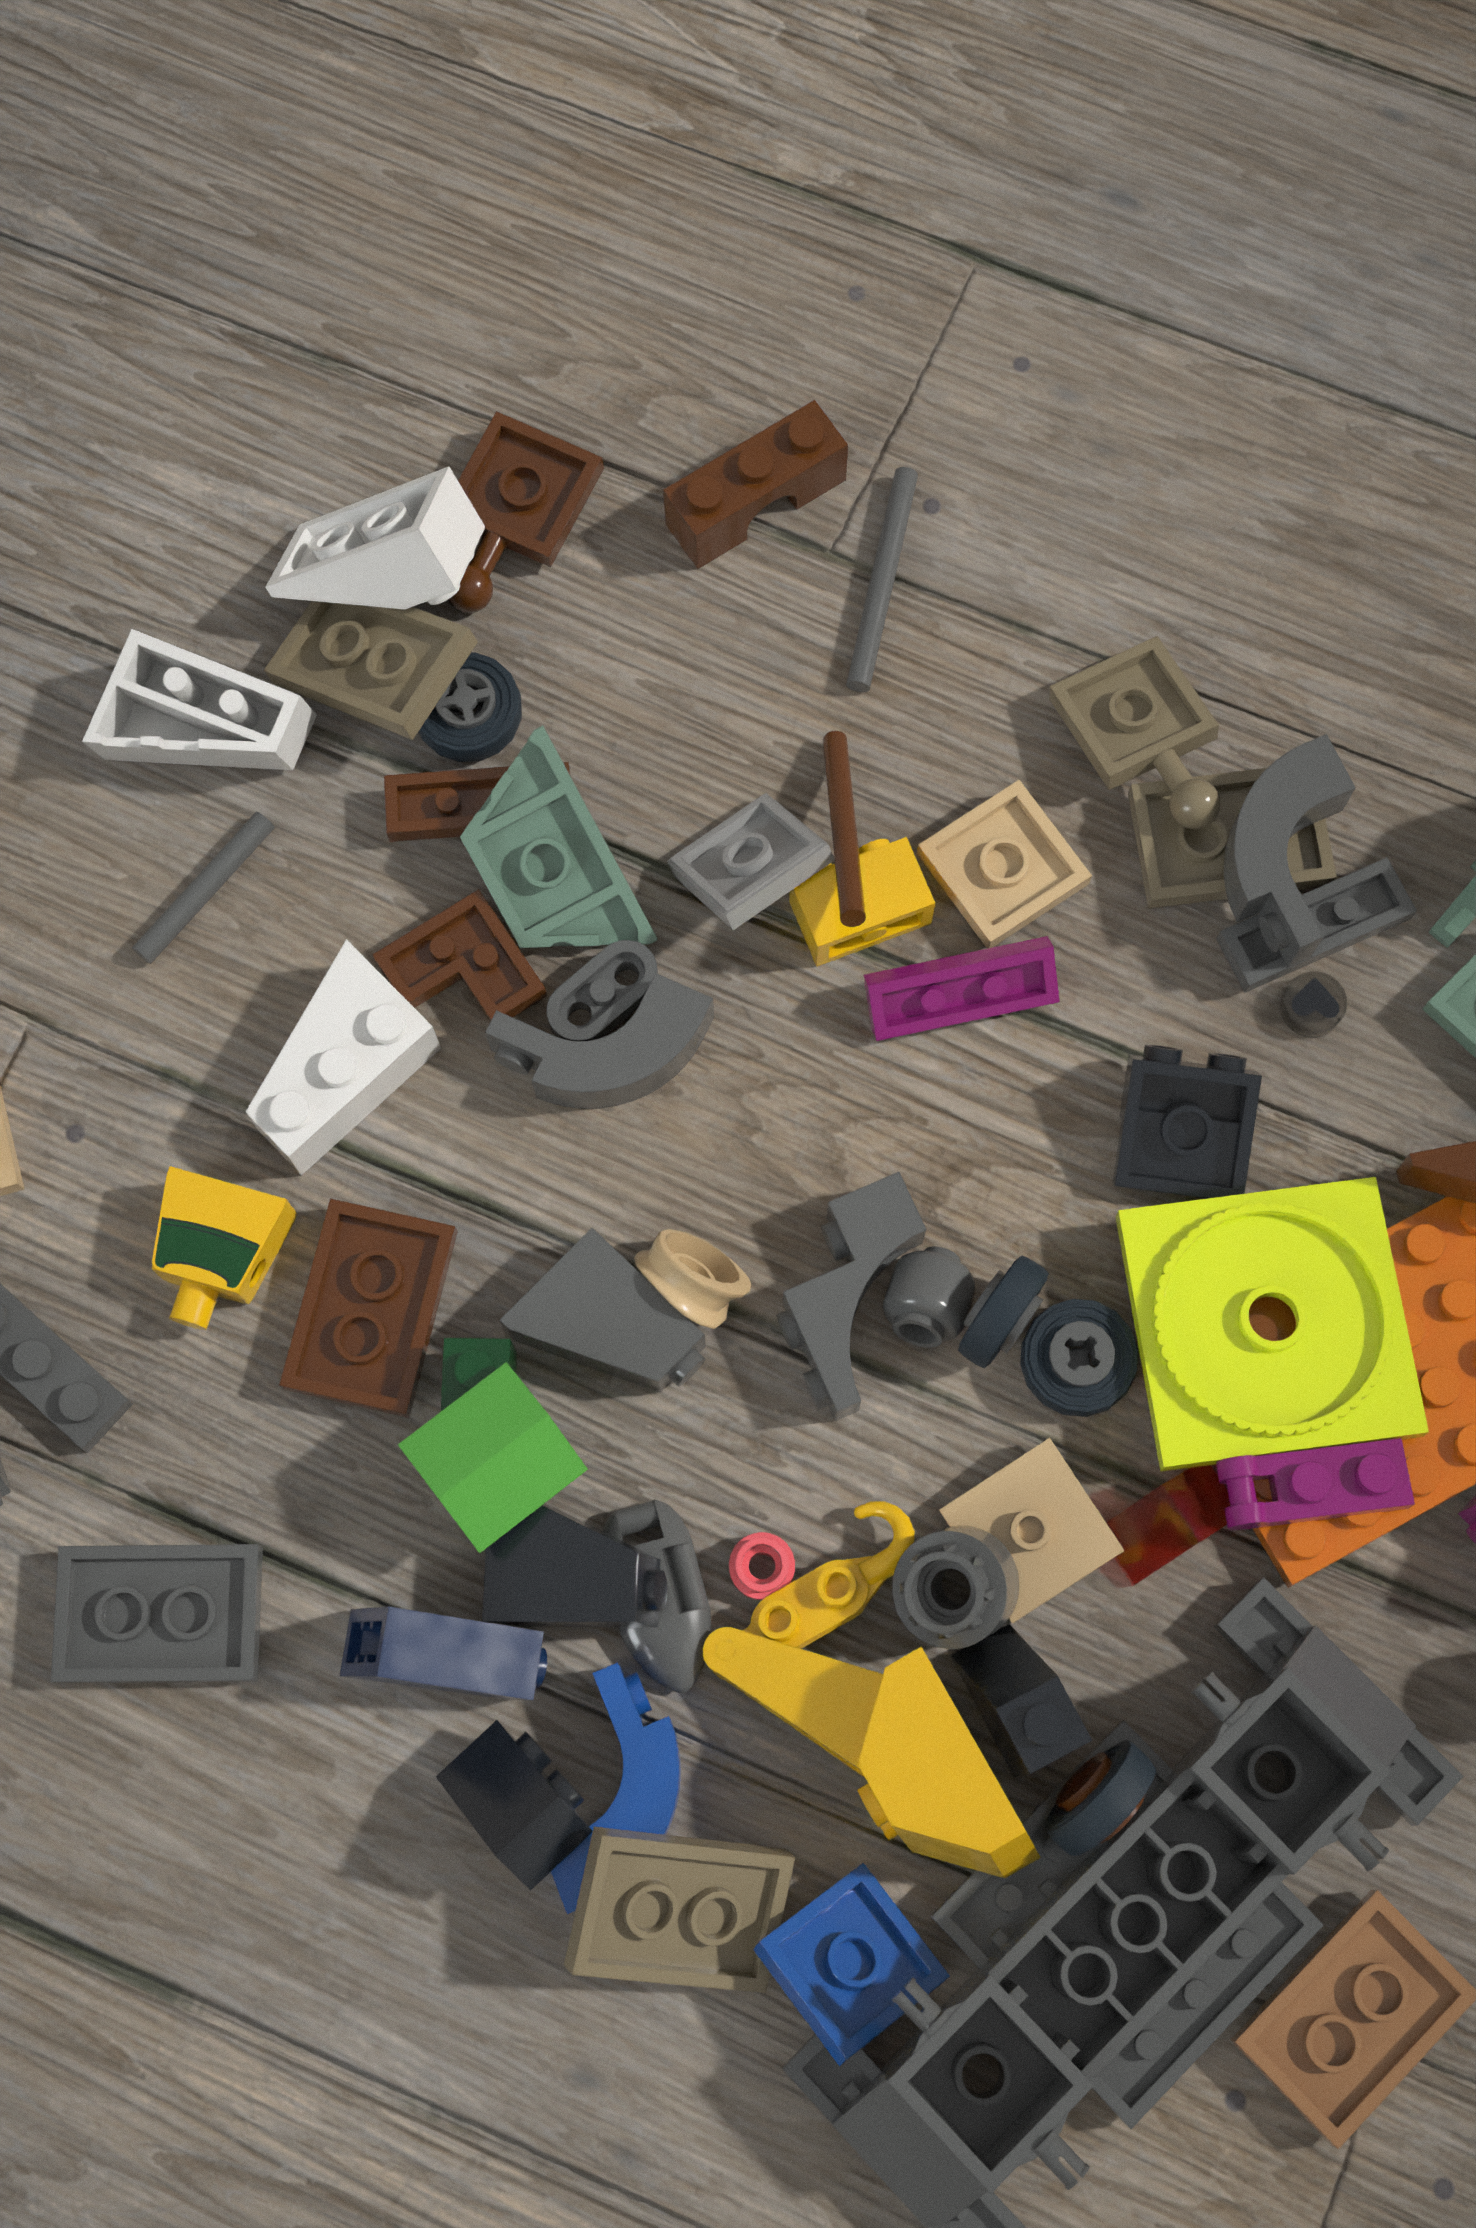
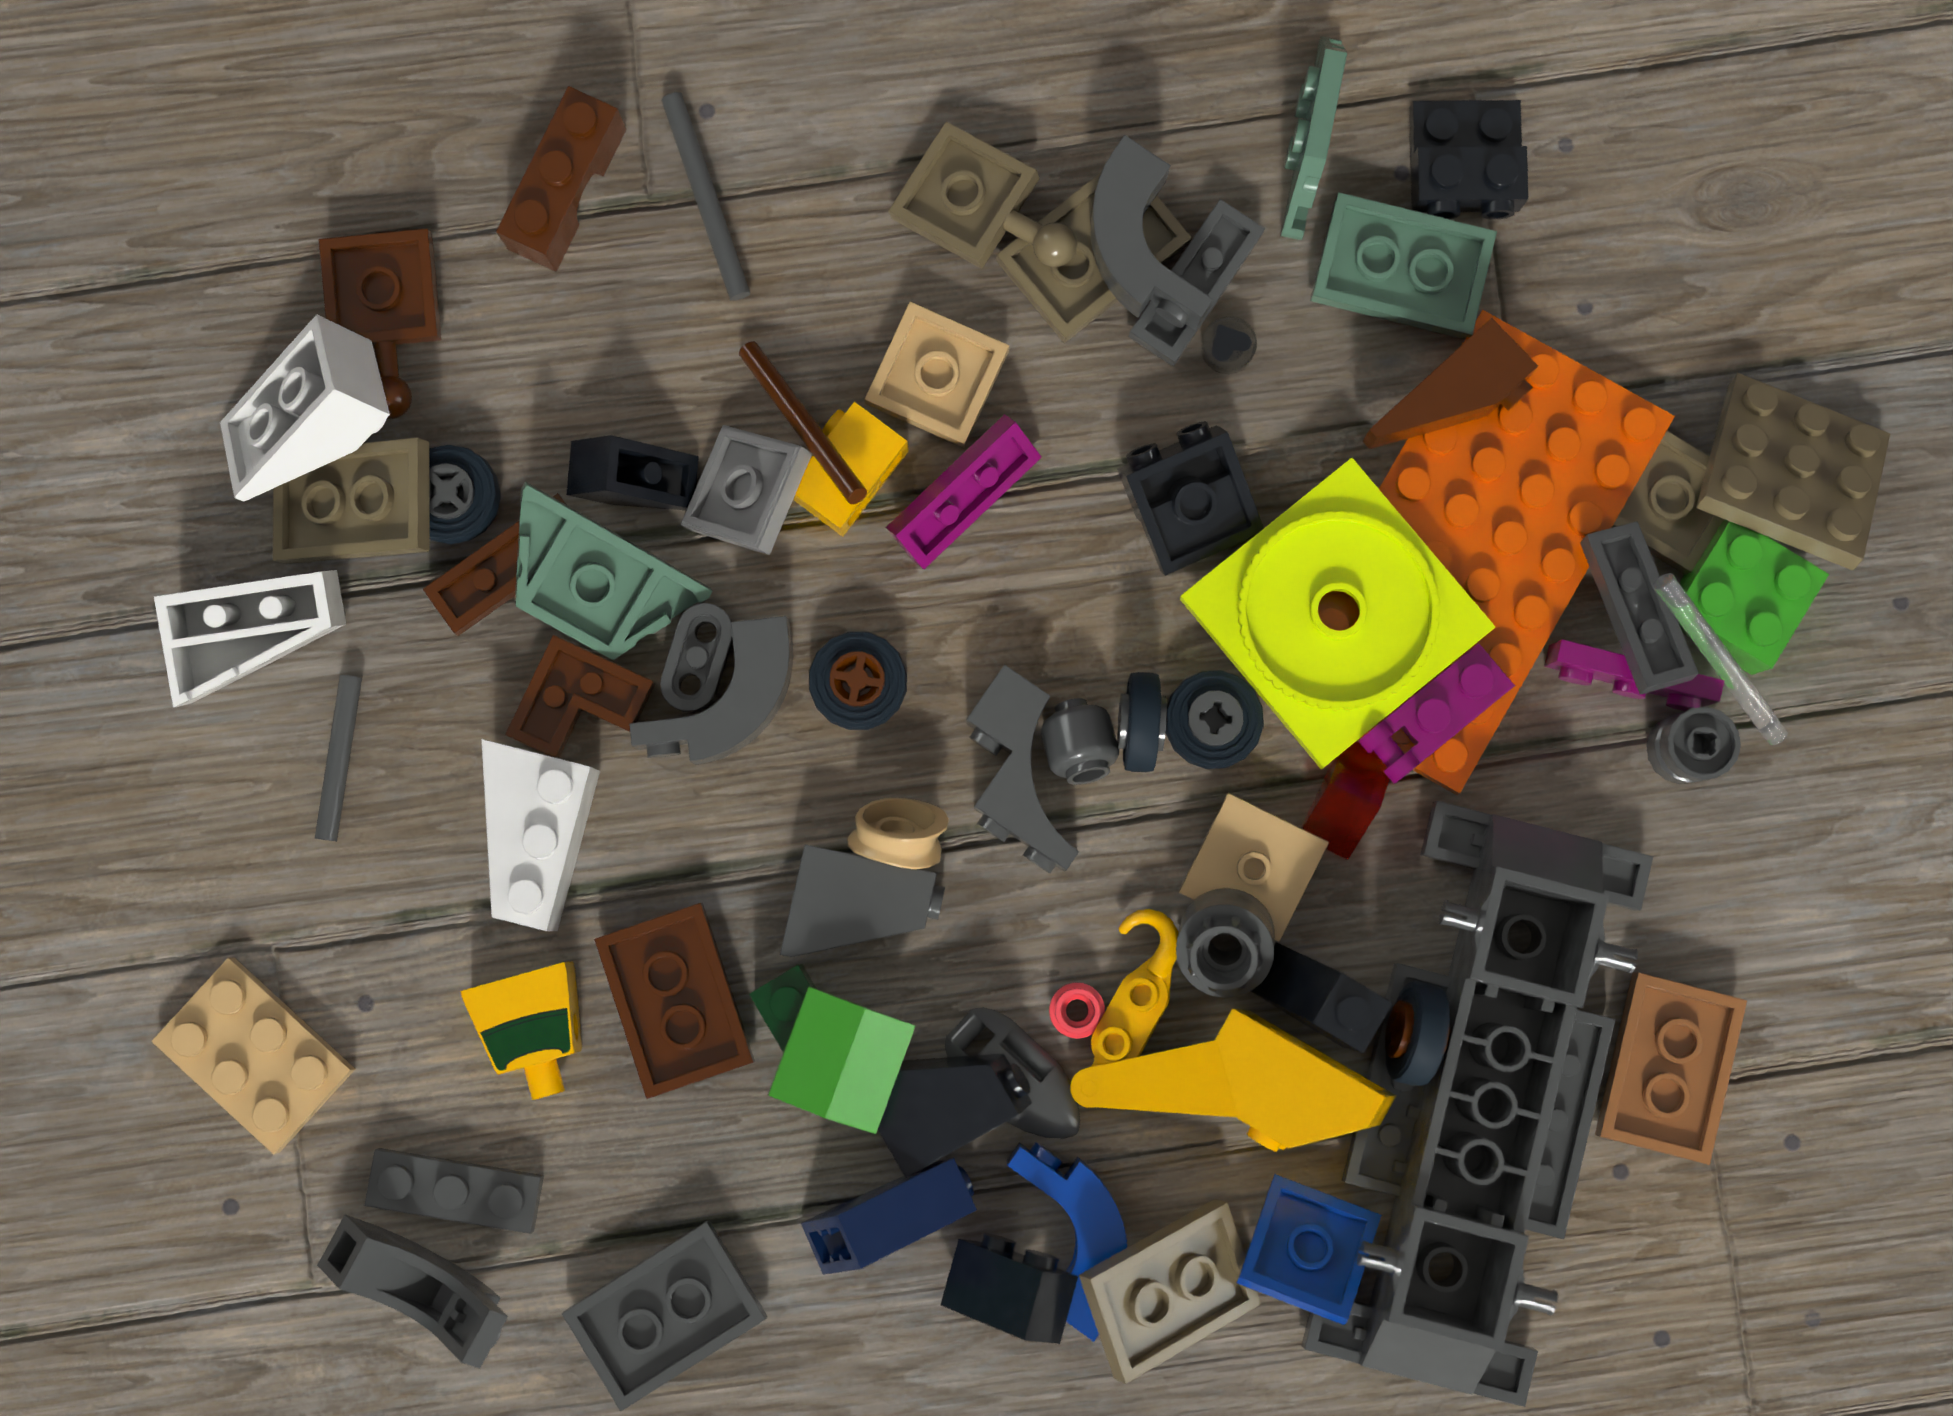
camera: 35 degrees left, 10 degrees up
(649, 784) = (631, 473): none -> black slope
(744, 1085) = (861, 662): none -> black wheel

